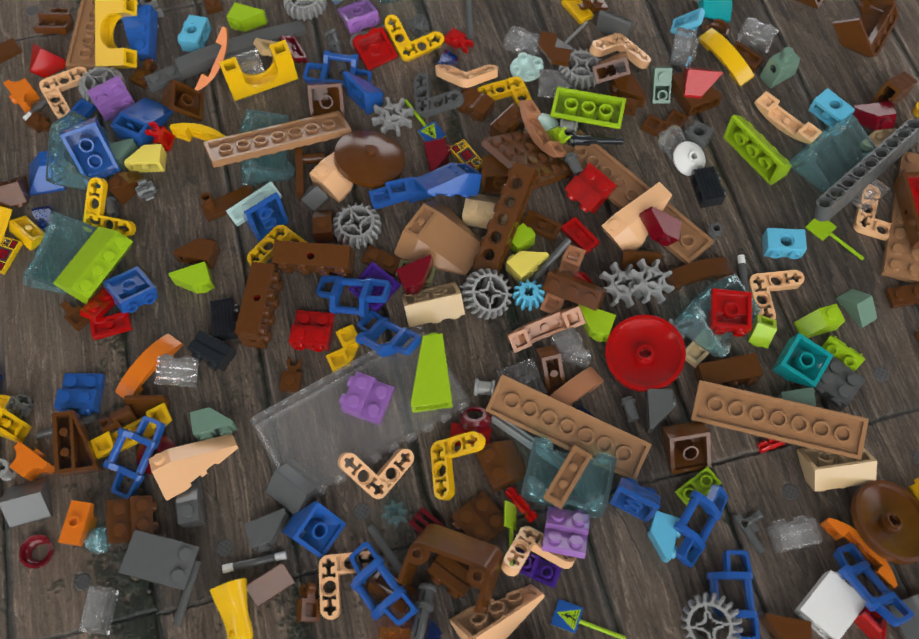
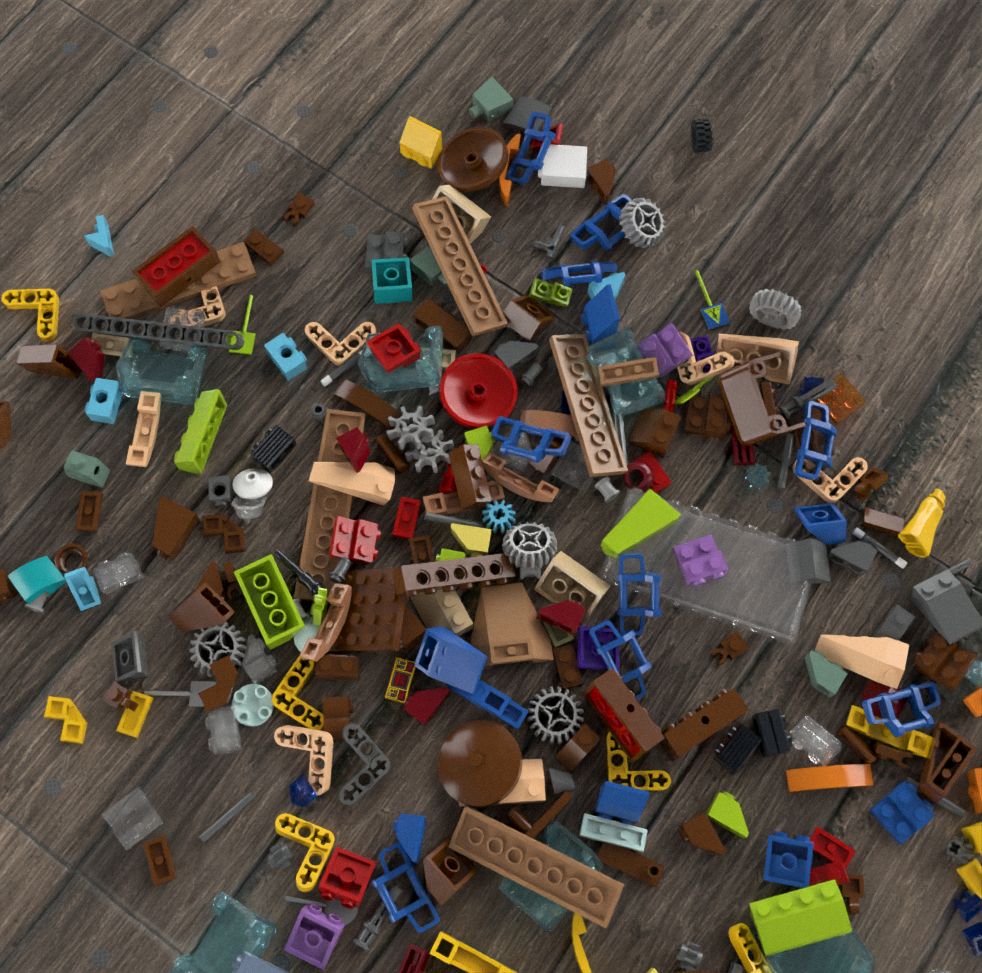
camera: 135 degrees left, 5 degrees up
(312, 330) = (679, 667): red plate -> none
(346, 354) = (676, 621): yellow tile -> none
(379, 478) = (744, 505): light nougat beam -> none
(393, 116) = (423, 784): light grey gear -> none
(430, 131) = (399, 738): piece -> none
(447, 454) = (684, 472): yellow beam -> none
(458, 39) = (266, 807): red plate -> none
(579, 339) = (509, 445): none -> blue bar
(620, 43) = (160, 631): light nougat beam -> none
(661, 84) = (181, 563): sand green slope -> none
(698, 81) = (161, 522): slope -> none
(727, 55) = (102, 528): yellow slope -> none
(757, 34) = (53, 515): clear brick -> none
(762, 331) = (385, 319): lime brick -> none
(795, 534) = (532, 213): clear brick -> none
(820, 321) = (342, 290): lime slope -> none
(840, 351) = (356, 254): lime hinge -> none
(859, 306) = (303, 274): sand green slope -> none

